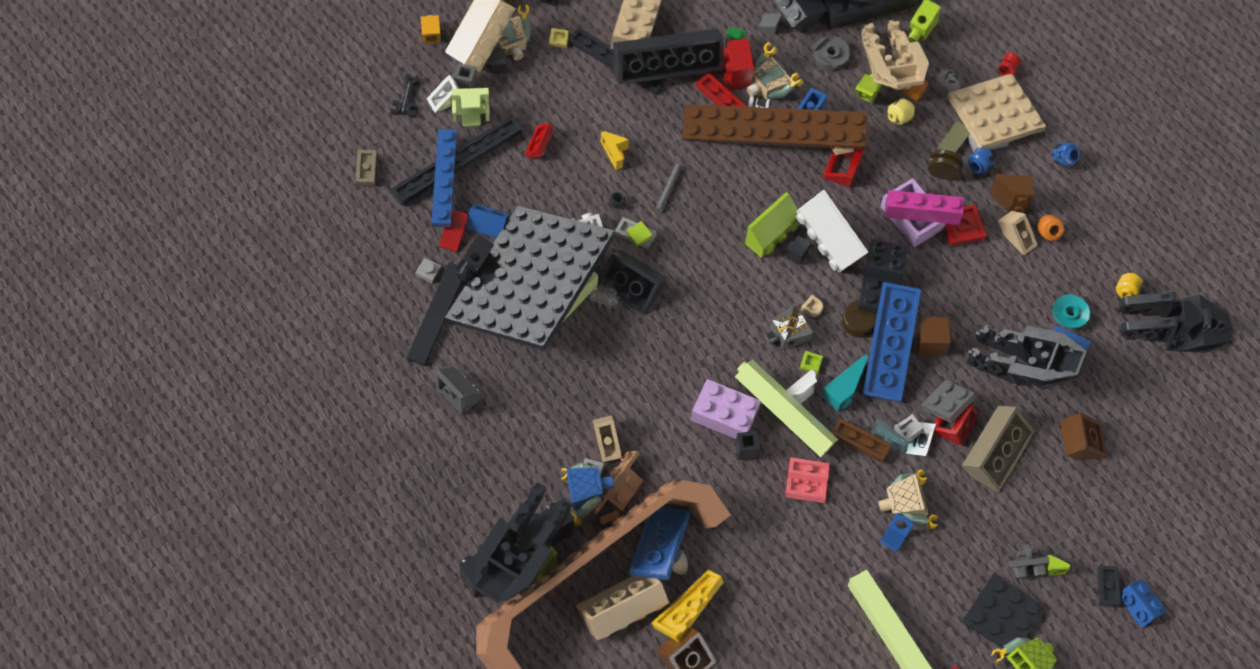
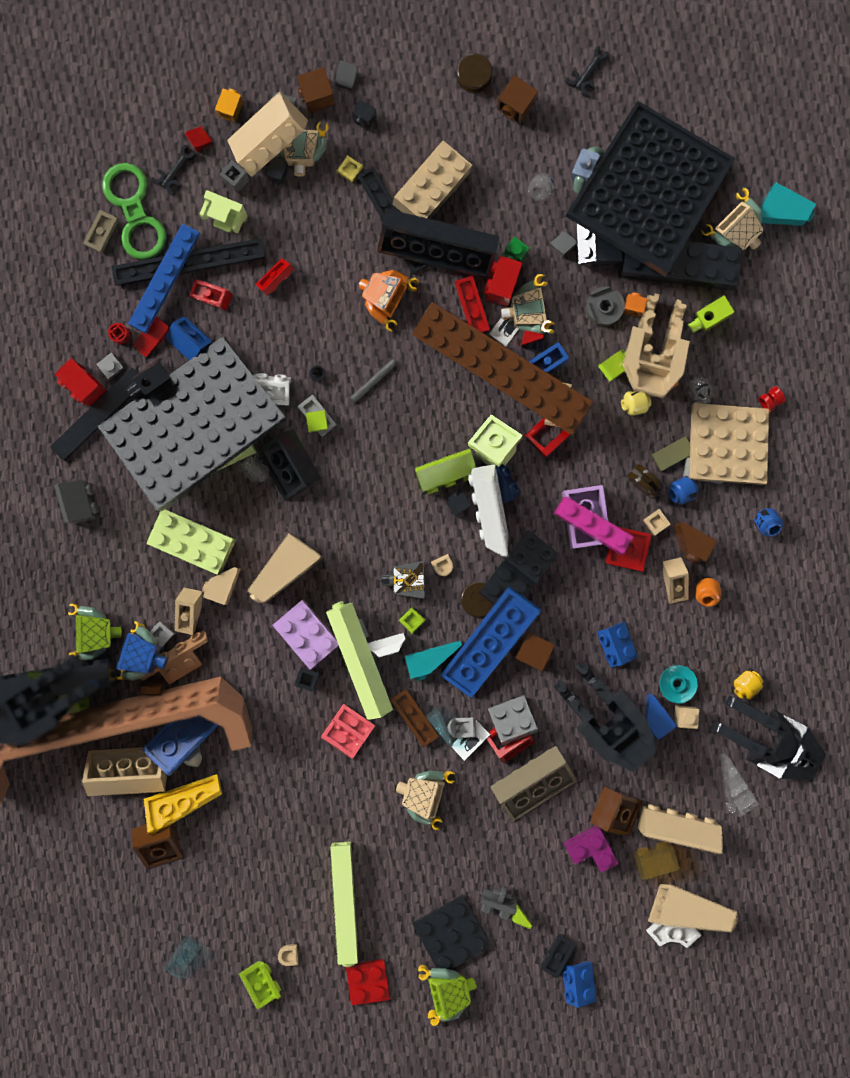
camera: 30 degrees right, 25 degrees up
(387, 141) = (134, 211): none -> bright green bar
(412, 287) = (80, 382): none -> red brick
(415, 66) = (198, 138): none -> red slope
(425, 239) = (121, 337): none -> red wheel
(442, 95) = (210, 182): white slope -> none
(489, 178) = (211, 295): none -> red slope
(519, 485) = (92, 632): none -> lime torso
(579, 378) = (191, 541): none -> yellowish green brick
(614, 146) = (340, 313): yellow slope -> none
(625, 405) = (221, 586): none -> tan slope
(642, 115) = (384, 294): none -> orange torso
(679, 355) = (285, 566): none -> tan slope
(785, 98) = (531, 337): none -> red slope
(802, 184) = (495, 442): none -> yellowish green panel
(856, 41) = (635, 304): none -> orange plate
(894, 534) = (395, 821): blue bracket -> none
(974, 194) = (656, 522): none -> tan plate
(999, 304) = (617, 644): none -> blue bracket
(1082, 474) = (591, 844): none -> magenta brick
(1095, 332) = (686, 717): none -> tan brick
(1143, 463) = (655, 860): none -> clear yellow piece
(1146, 426) = (681, 829): none -> tan slope
(1173, 374) = (736, 791): none -> clear slope
(1190, 523) = (664, 934): none -> white tile
(1198, 485) = (687, 910): none -> tan slope

